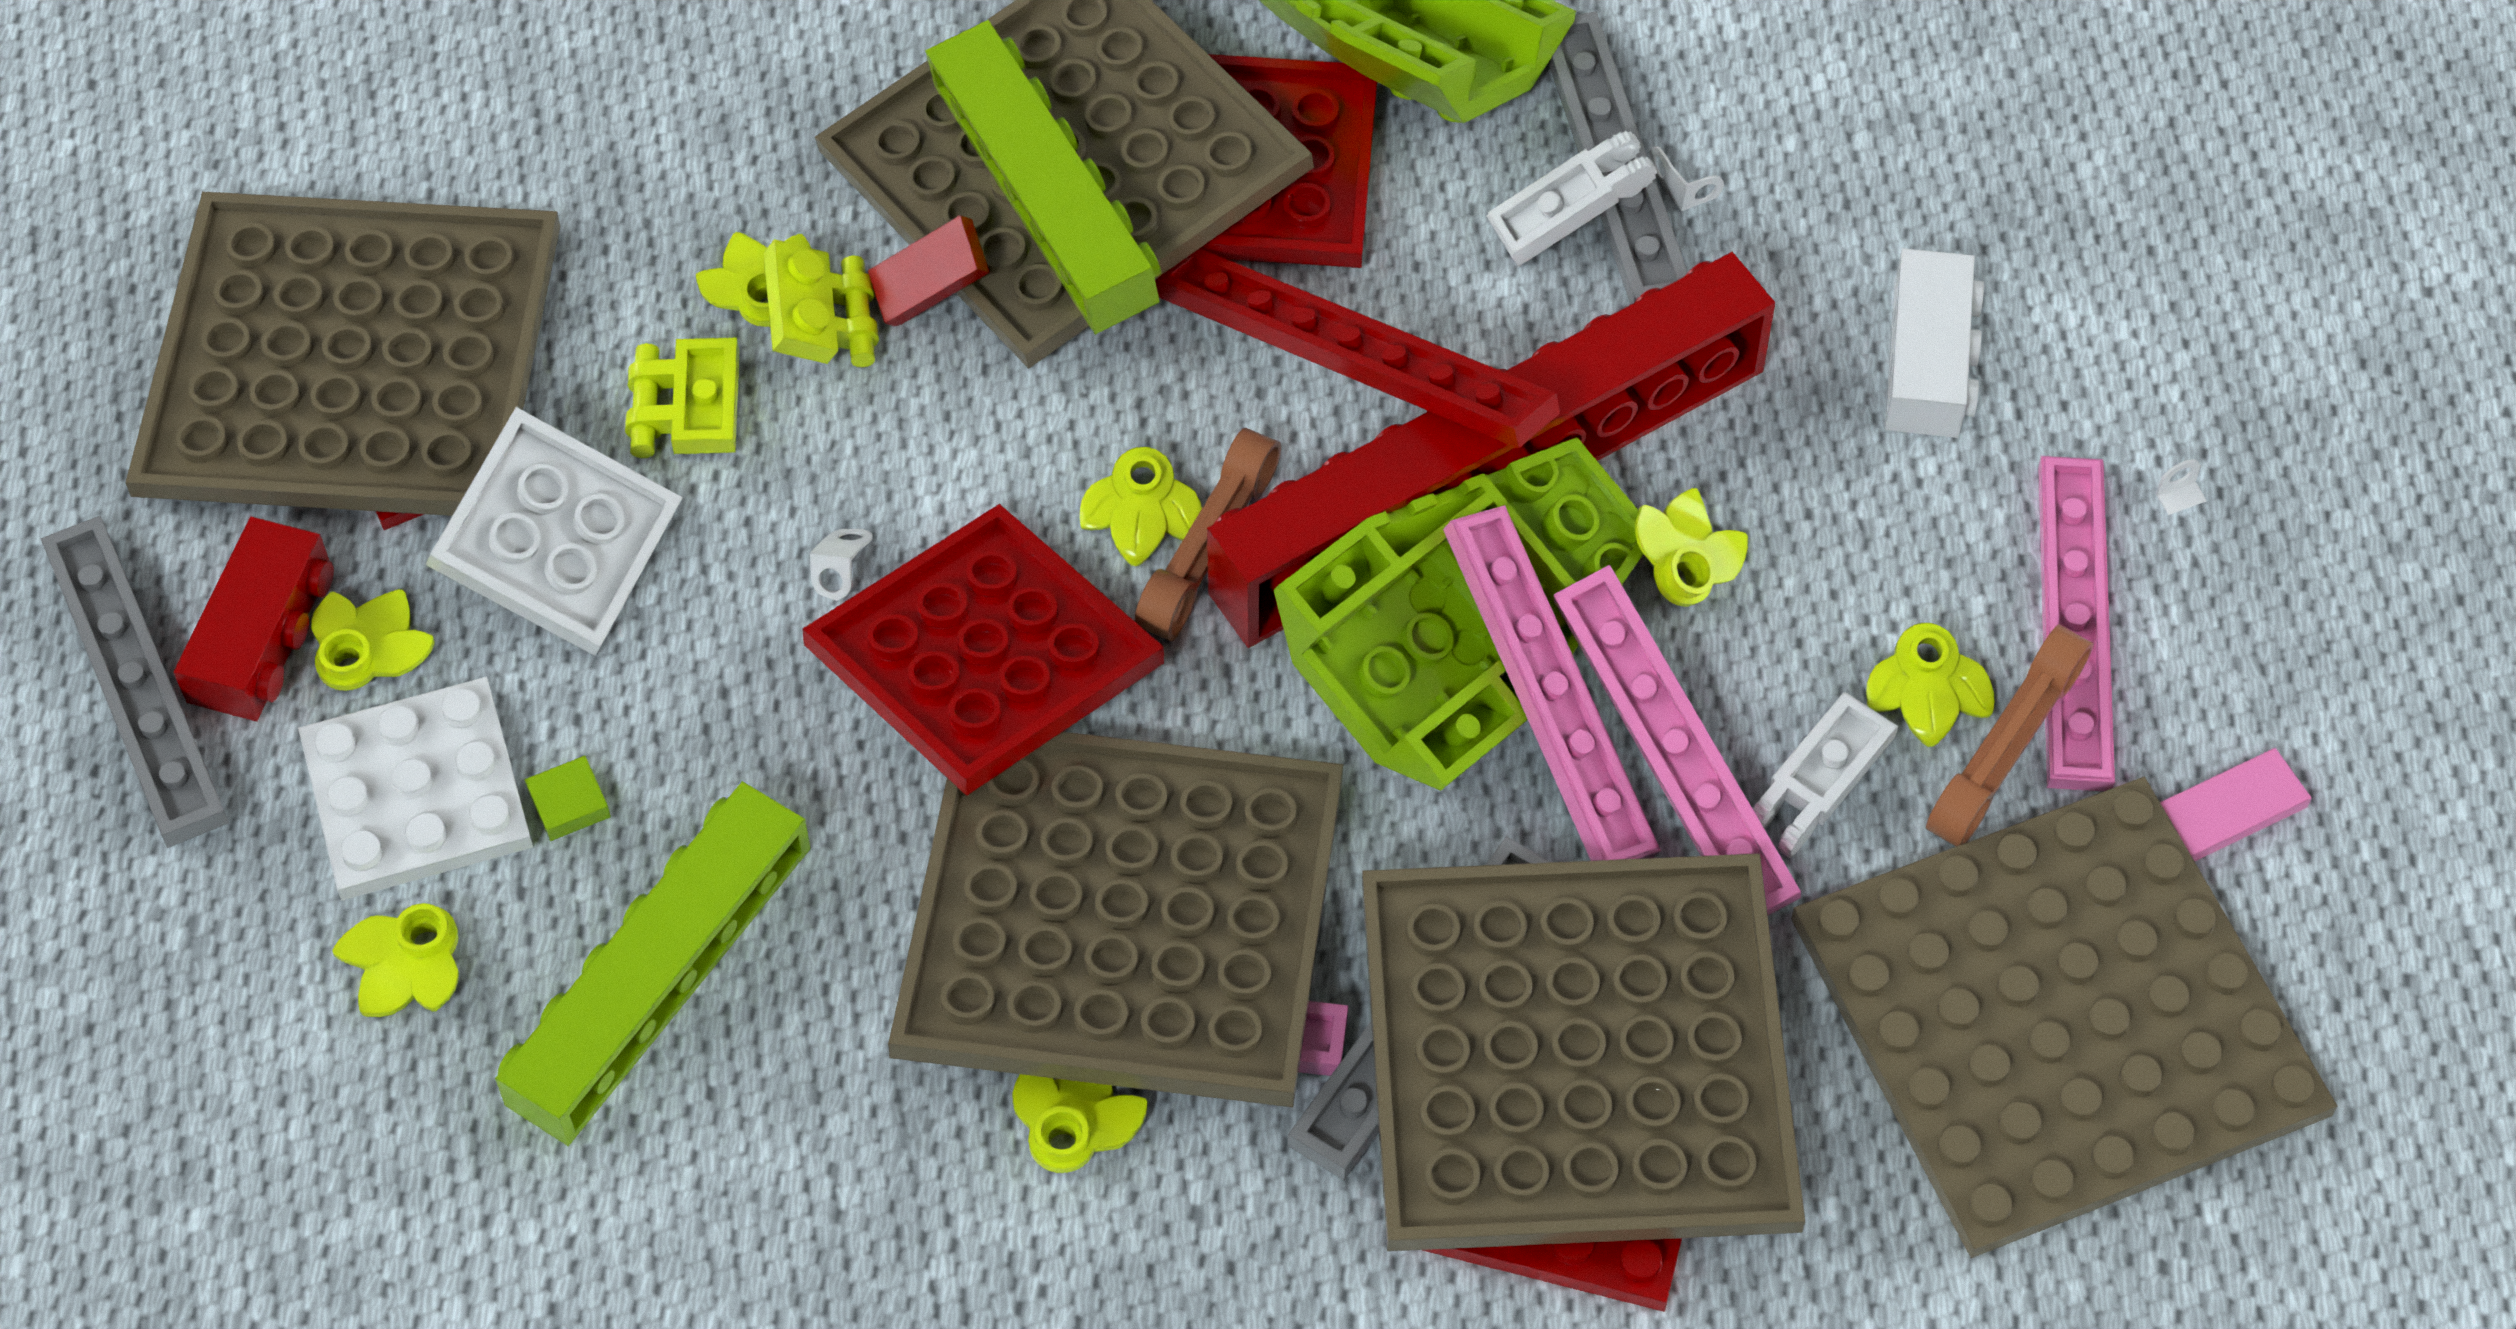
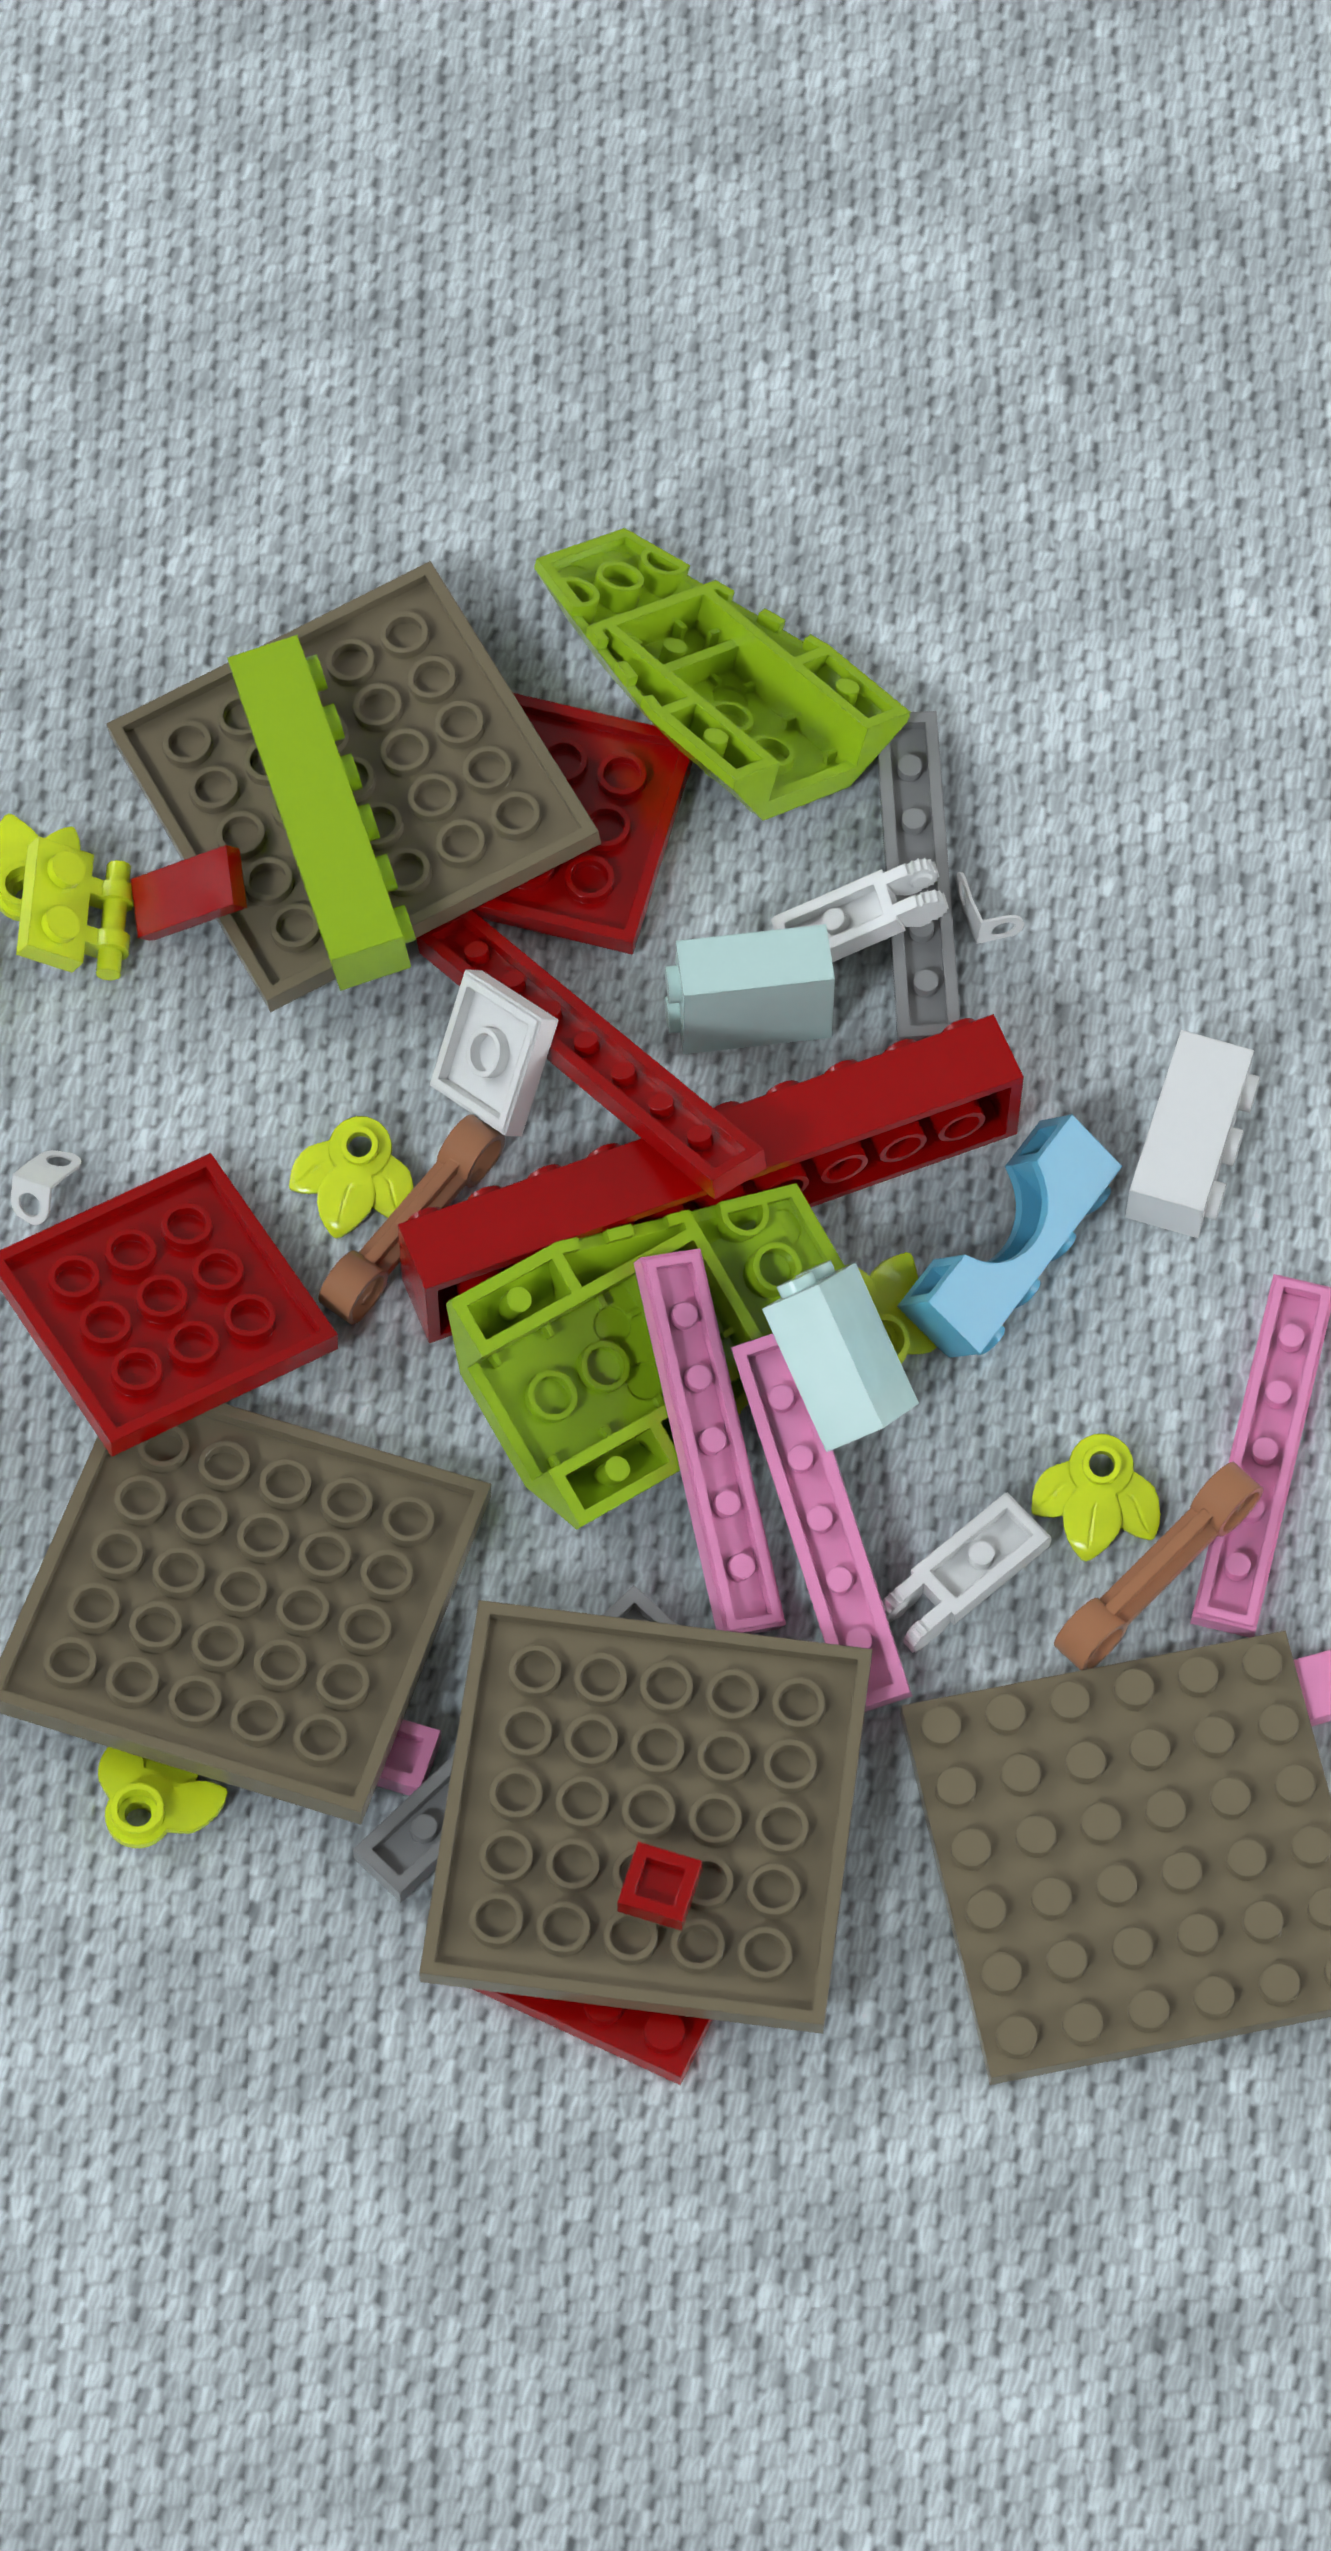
camera: 10 degrees right, 5 degrees up
(1257, 365) = (493, 1052): none -> white tile
(1489, 273) = (751, 989): none -> light aqua brick
(1612, 1111) = (659, 1886): none -> red plate
(1660, 583) = (839, 1354): none -> light aqua brick
(1818, 403) = (1056, 1182): none -> medium azure arch

